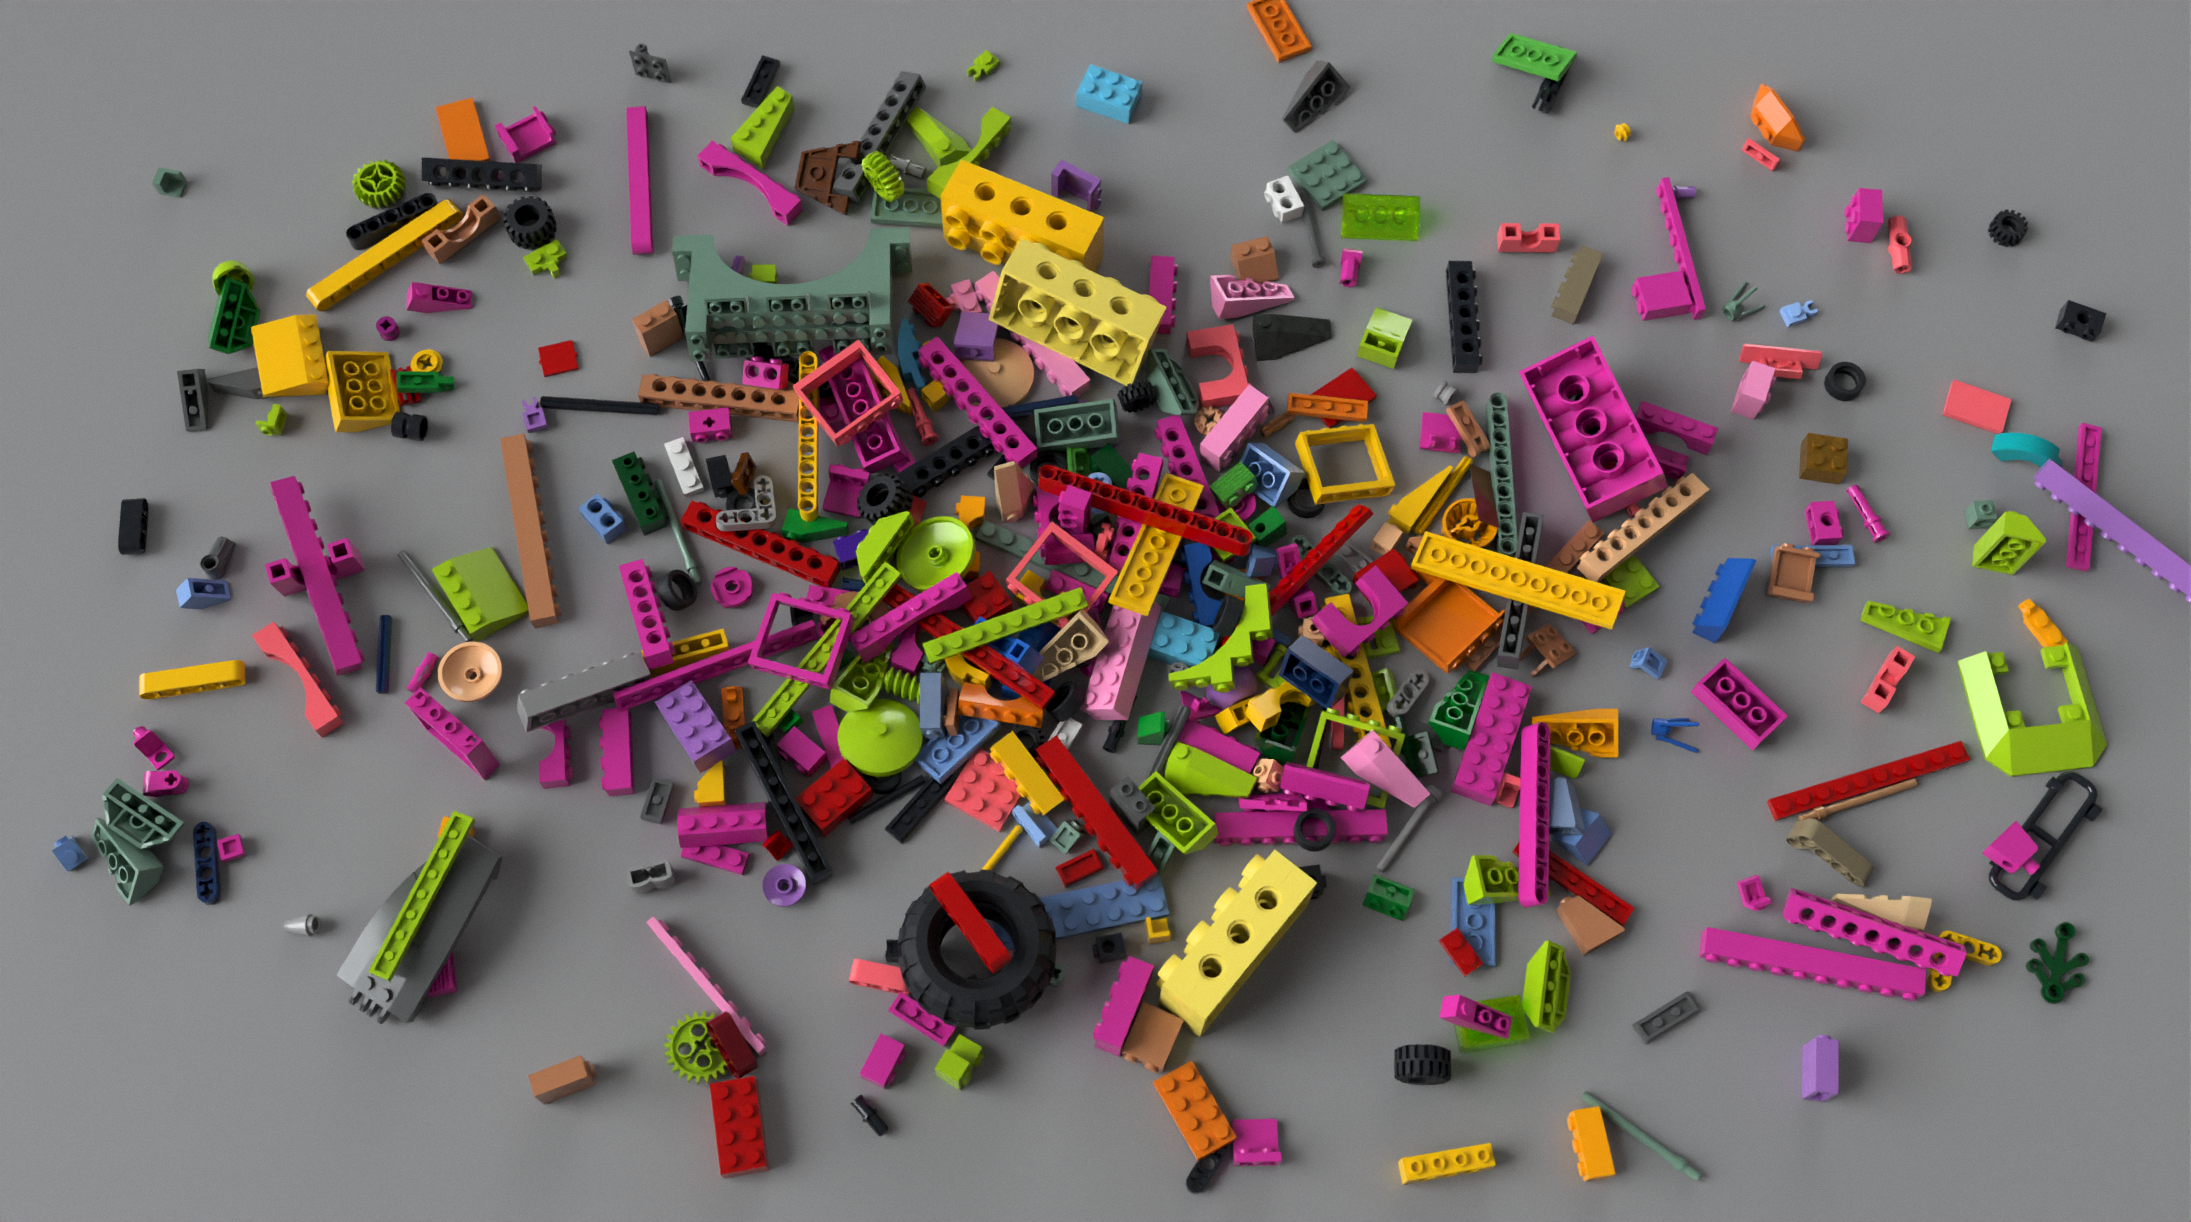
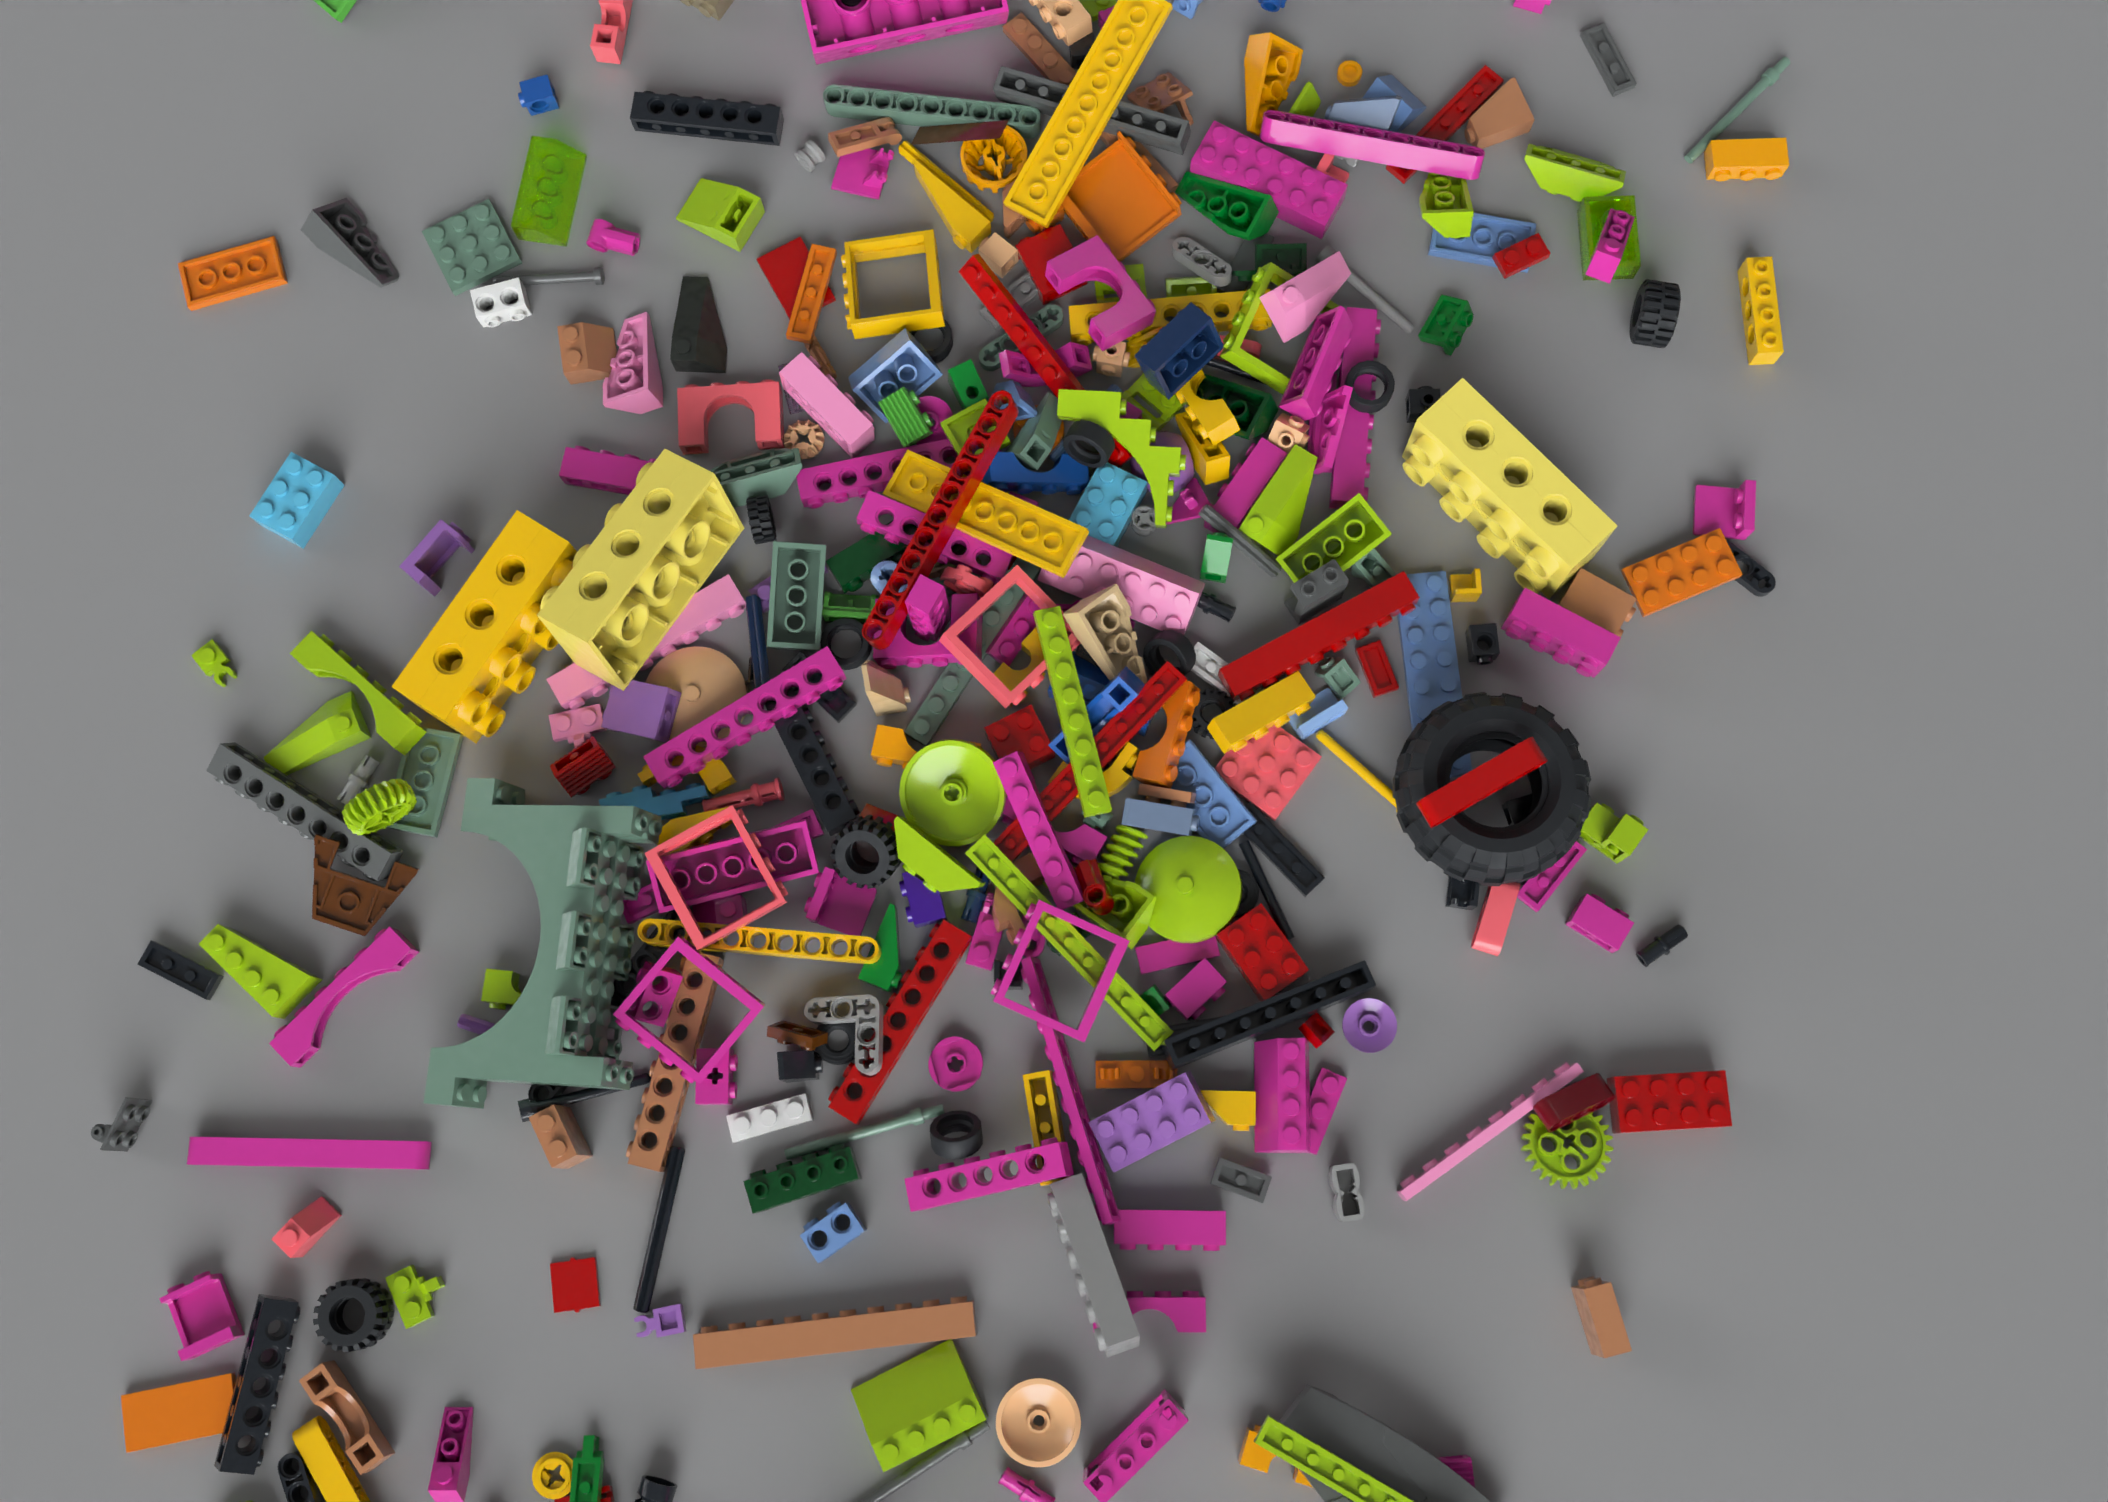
camera: 75 degrees left, 10 degrees up
(587, 185) = (306, 1228): none -> coral slope
(776, 409) = (667, 1054): none -> dark pink window
(868, 663) = (1093, 886): none -> red piece
(1458, 199) = (538, 95): none -> blue brick
(1605, 798) = (1349, 73): none -> light orange tile

